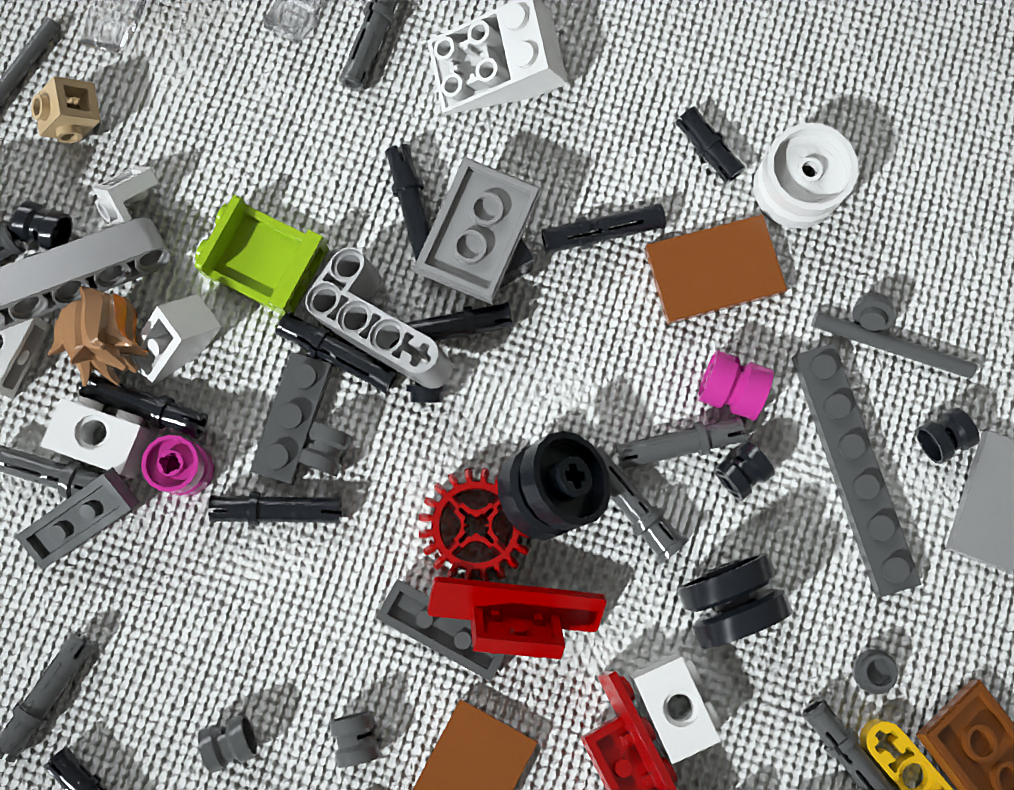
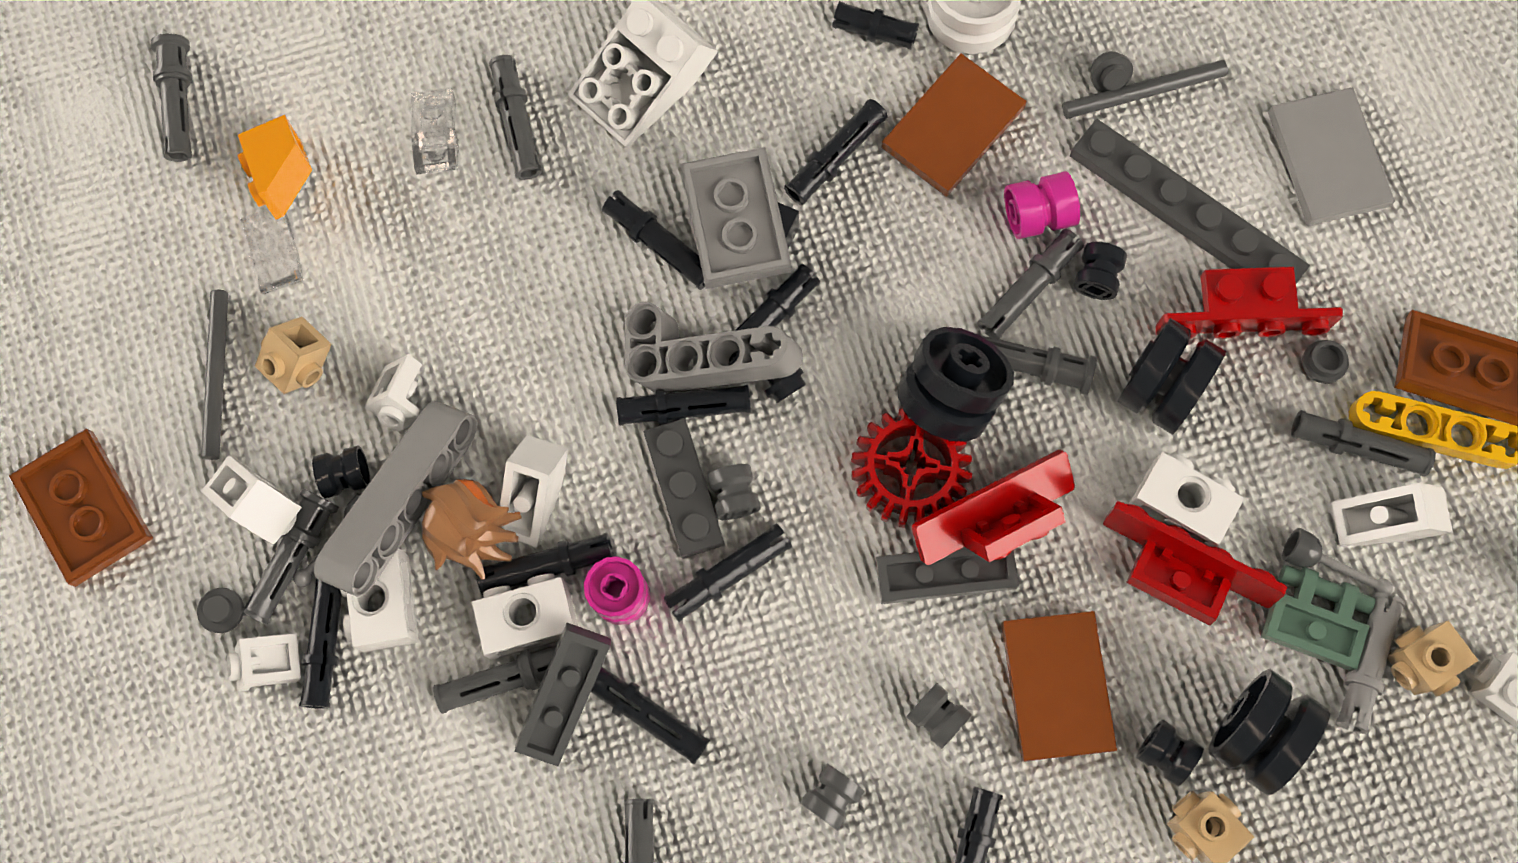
camera: 25 degrees left, 5 degrees down
(136, 577) = (691, 742): none -> black pin
(260, 256) = (557, 370): lime panel -> none
(849, 581) = (1252, 302): none -> red bracket
(951, 433) = (1244, 127): black wheel -> none

